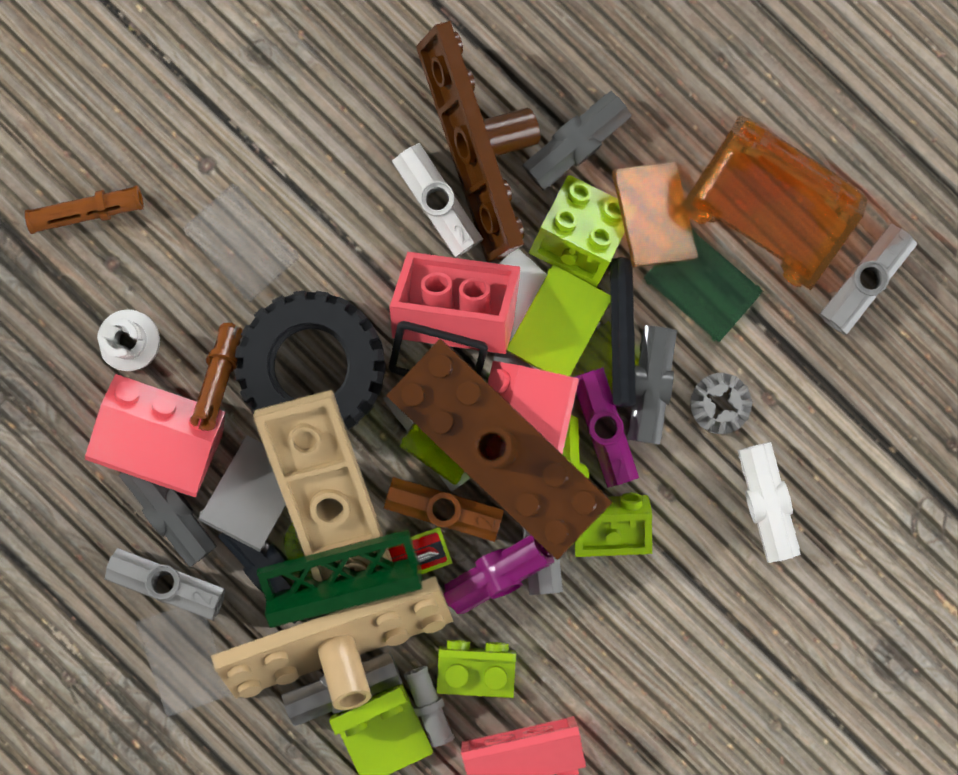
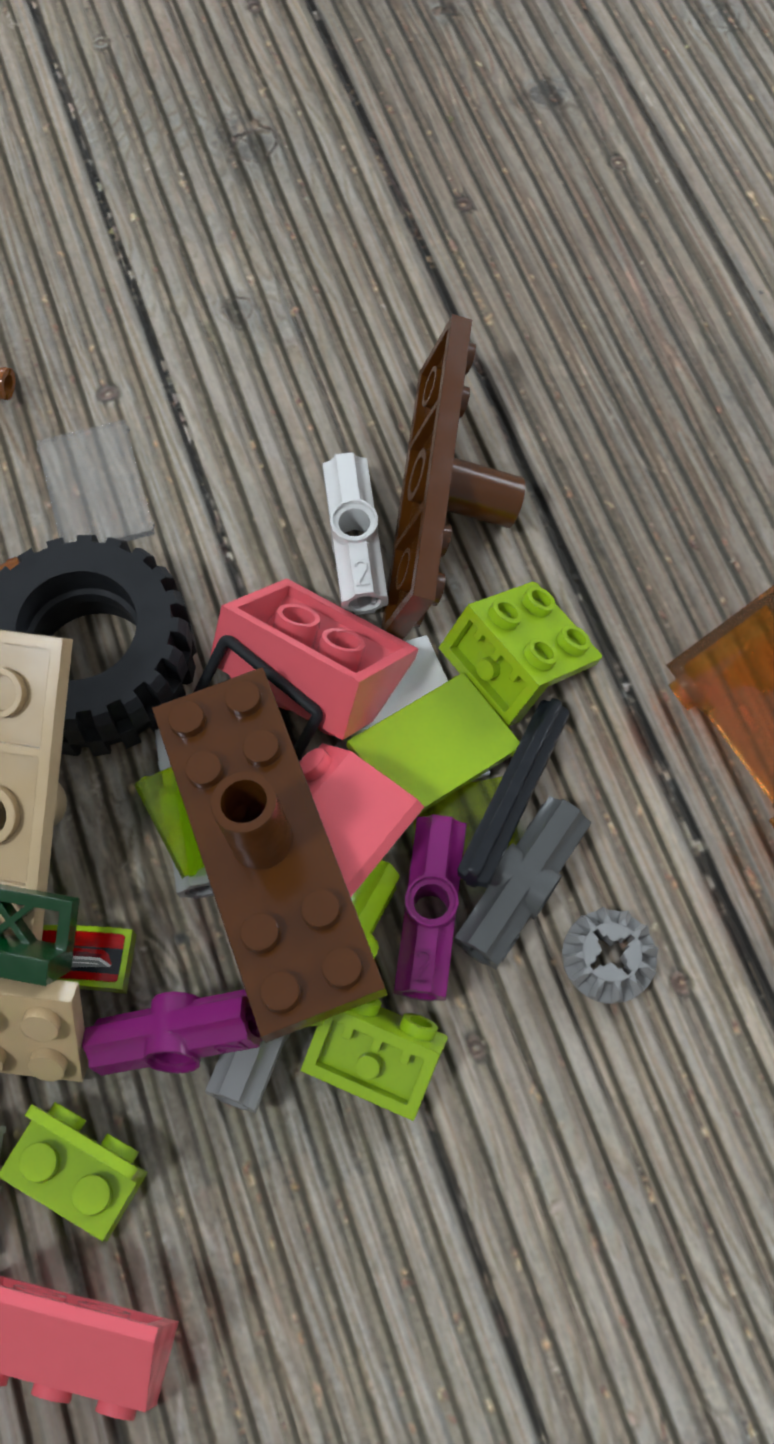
camera: 30 degrees right, 20 degrees down
(418, 502) = (177, 937): dark orange piece -> none
(577, 140) = (564, 542): dark grey piece -> none
(653, 215) = (624, 670): clear orange piece -> none
(706, 289) = (652, 790): clear green piece -> none
(769, 502) = (621, 1130): white piece -> none

